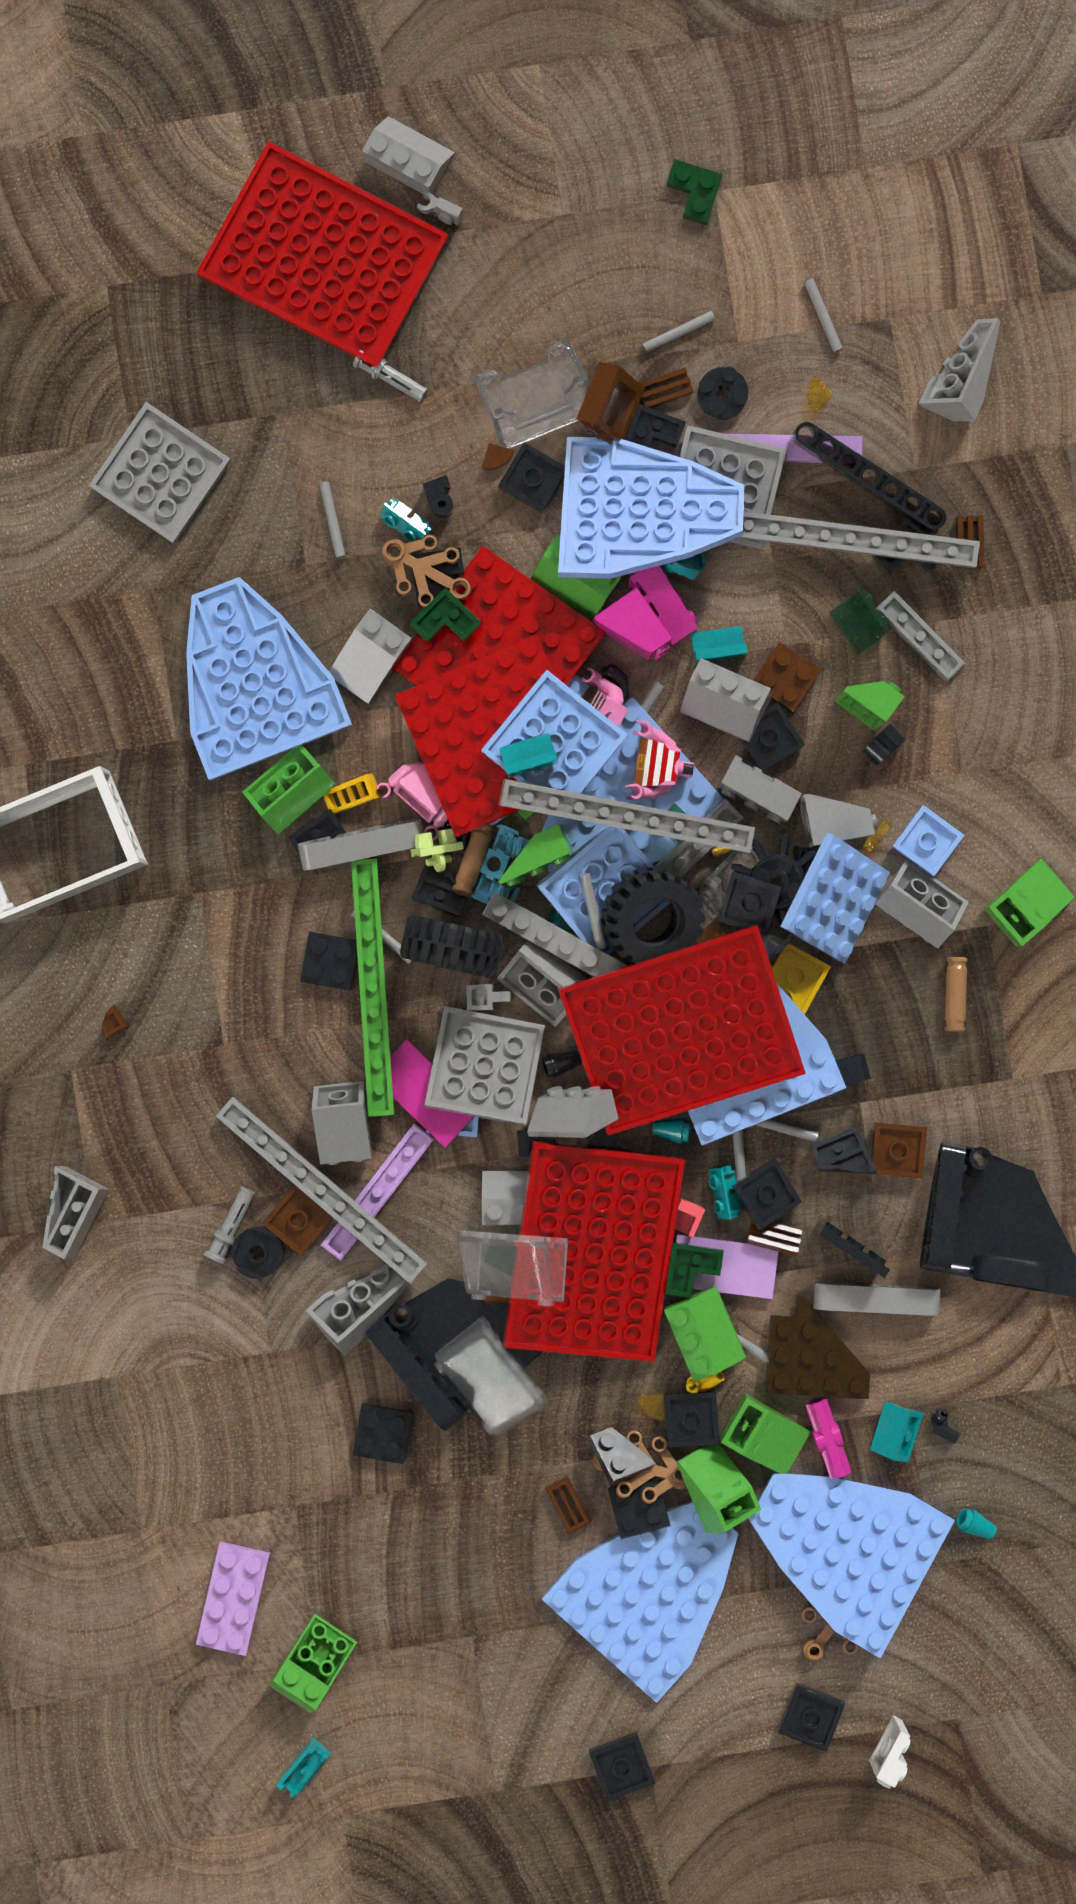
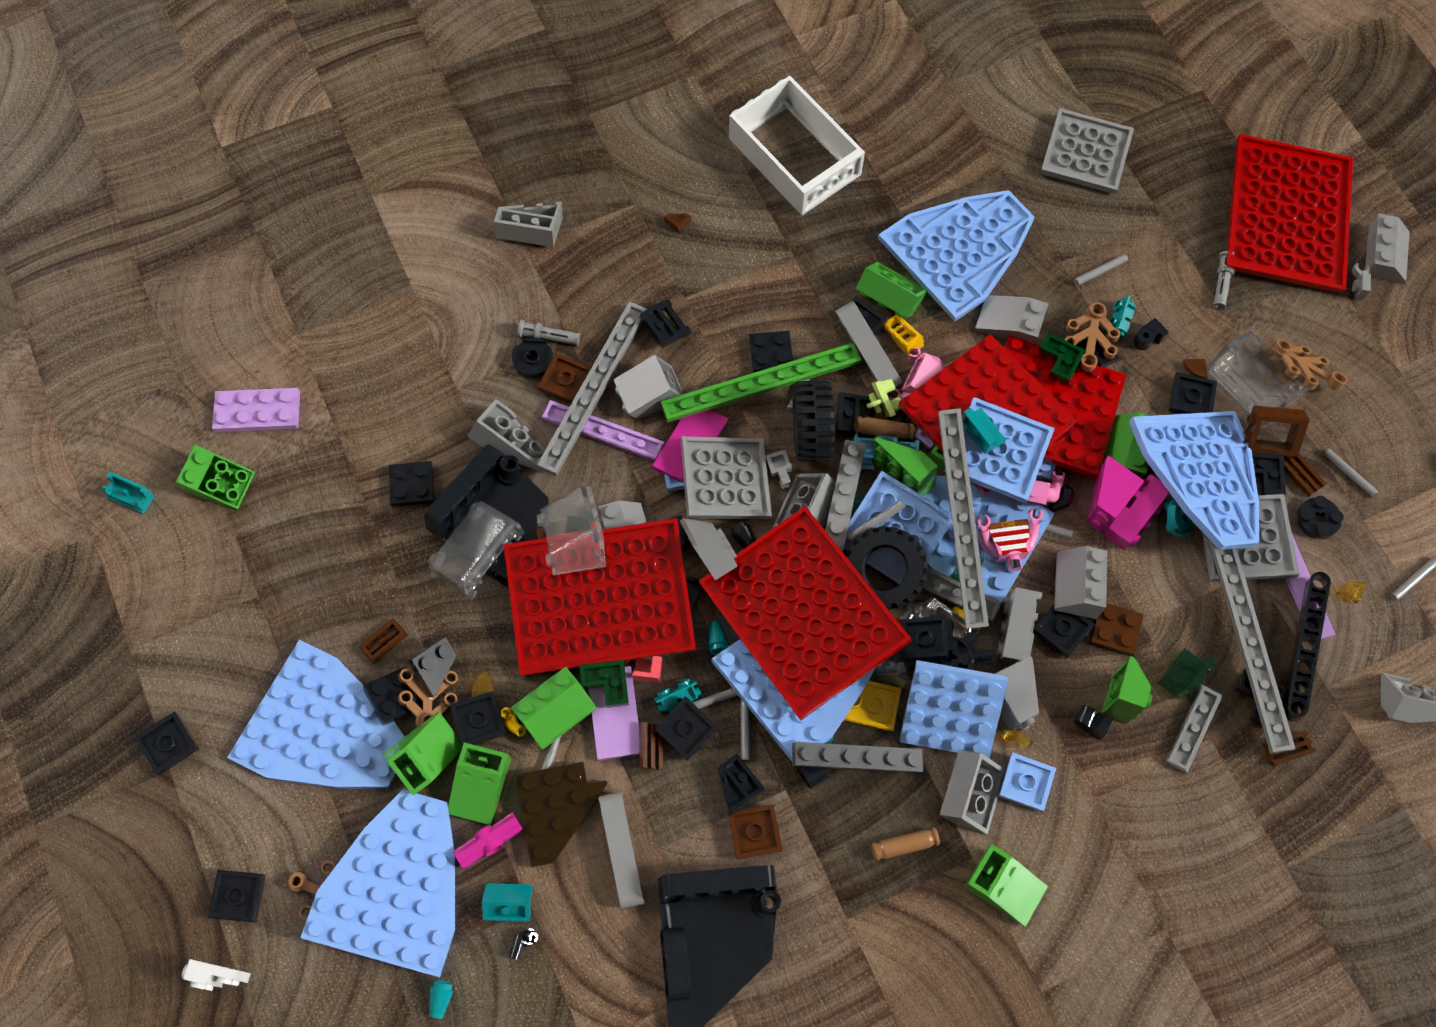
camera: 70 degrees right, 20 degrees down
(262, 1087) = (661, 327): none -> black plate
(534, 329) = (1307, 365): none -> medium nougat plant
(719, 644) = (1122, 570): teal panel -> none
(852, 1248) = (659, 811): black plate -> none
(855, 1018) = (857, 757): none -> dark grey plate

